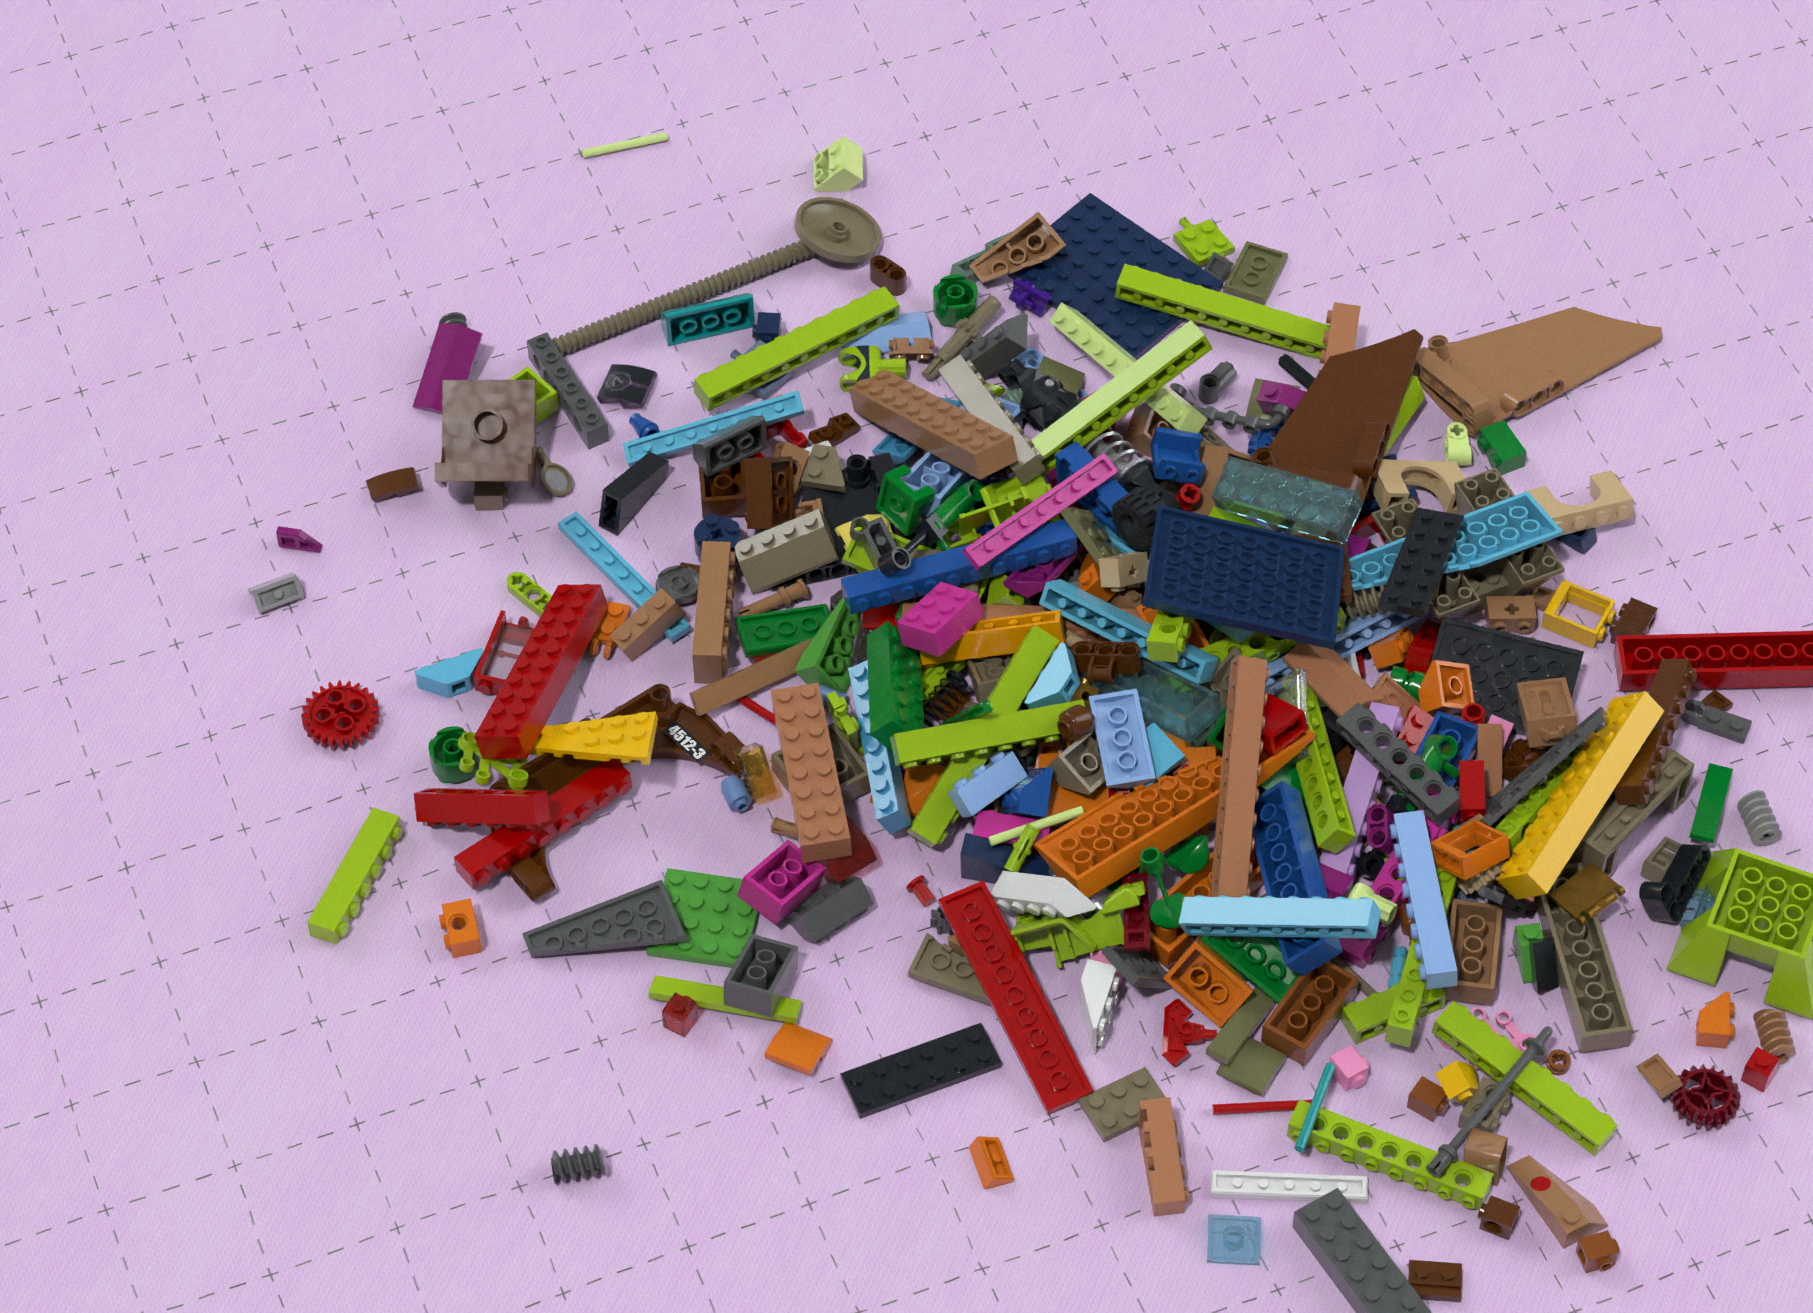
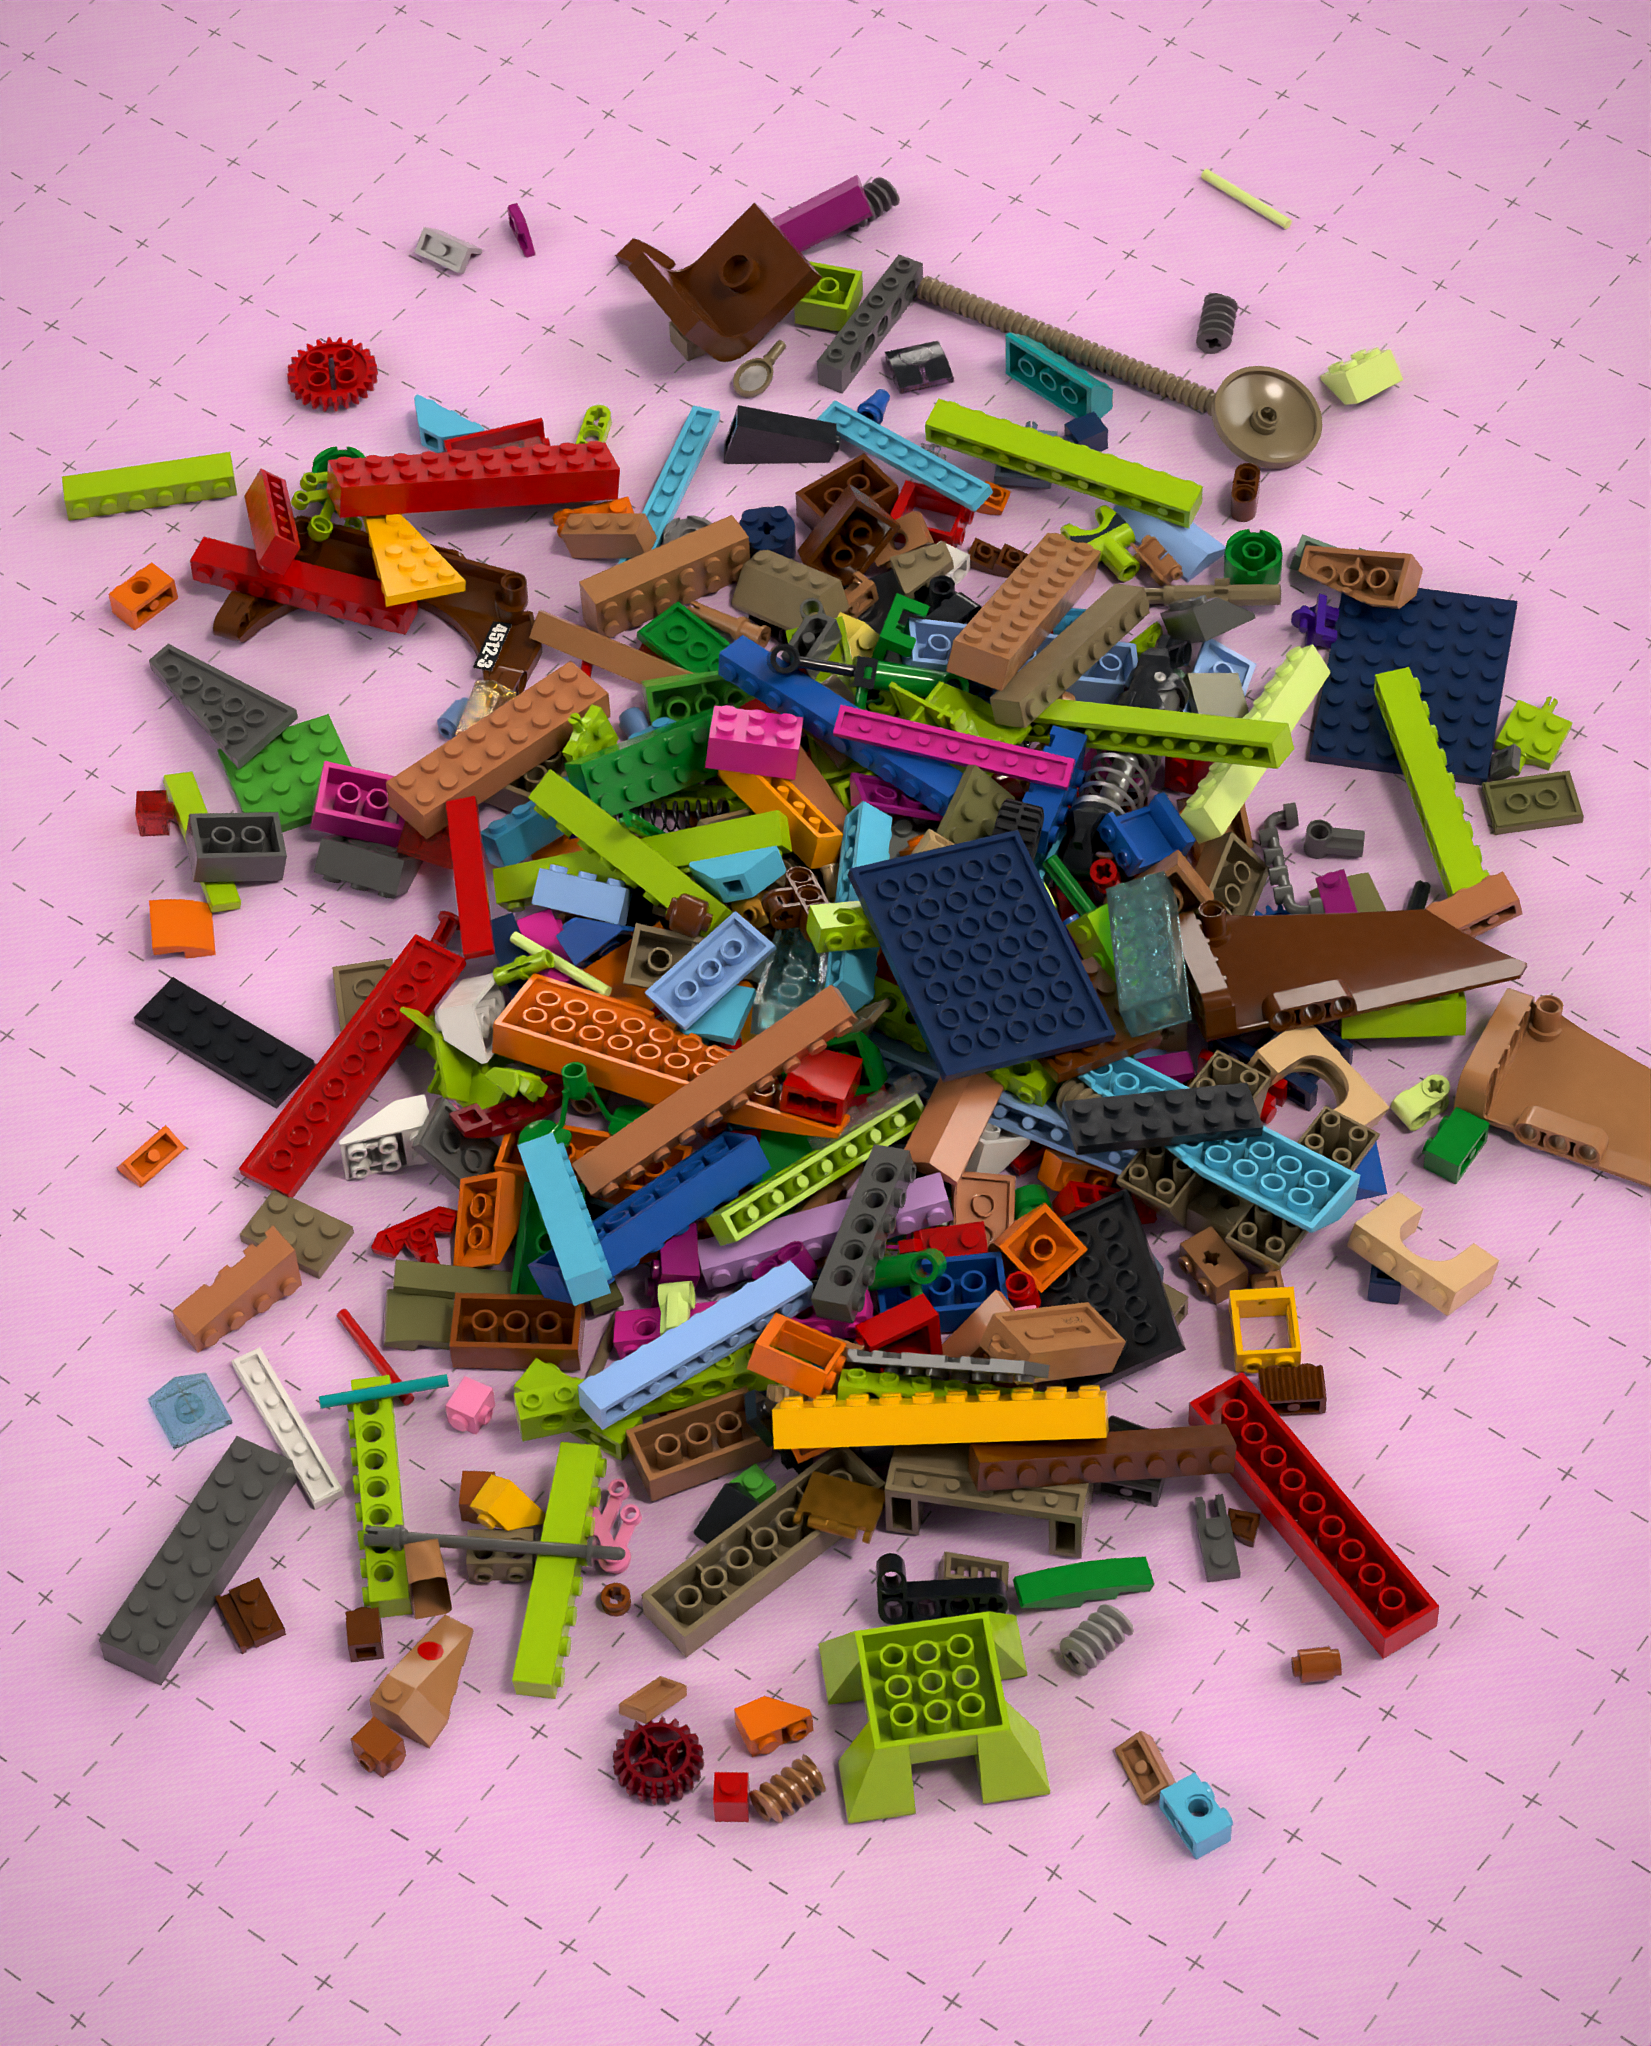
camera: 60 degrees right, 0 degrees up
(728, 213) = (1216, 323): none -> dark grey piece
(730, 445) = (874, 471): dark grey slope -> none
(920, 840) = (470, 878): none -> red tile

